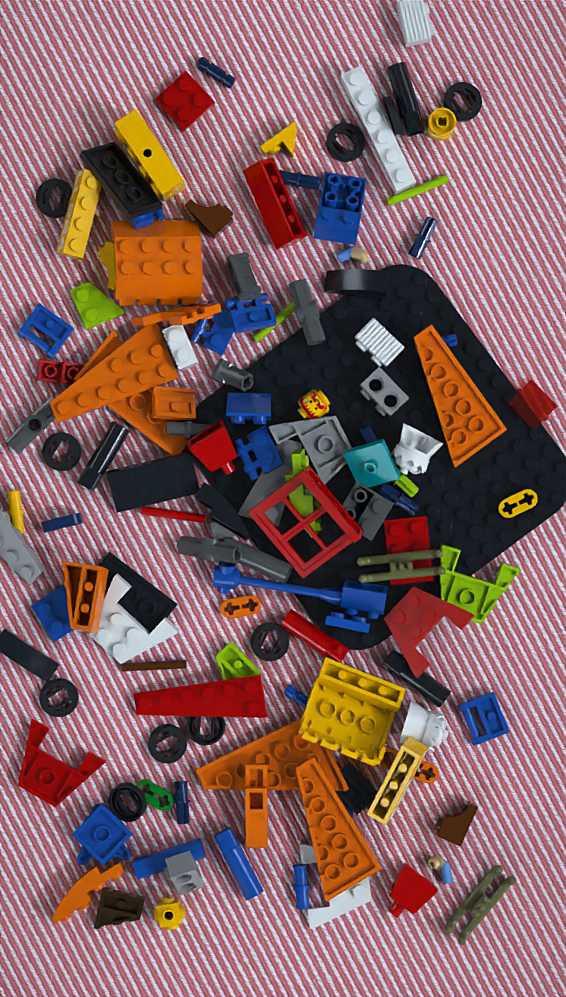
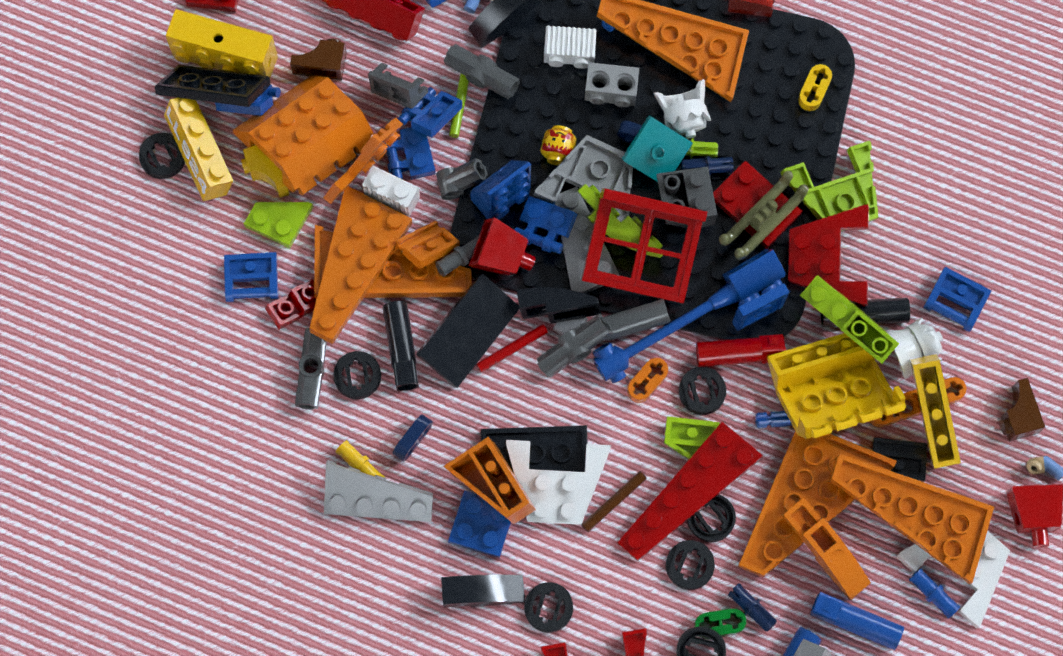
camera: 40 degrees left, 15 degrees down
(397, 679) = (850, 319): none -> lime slope

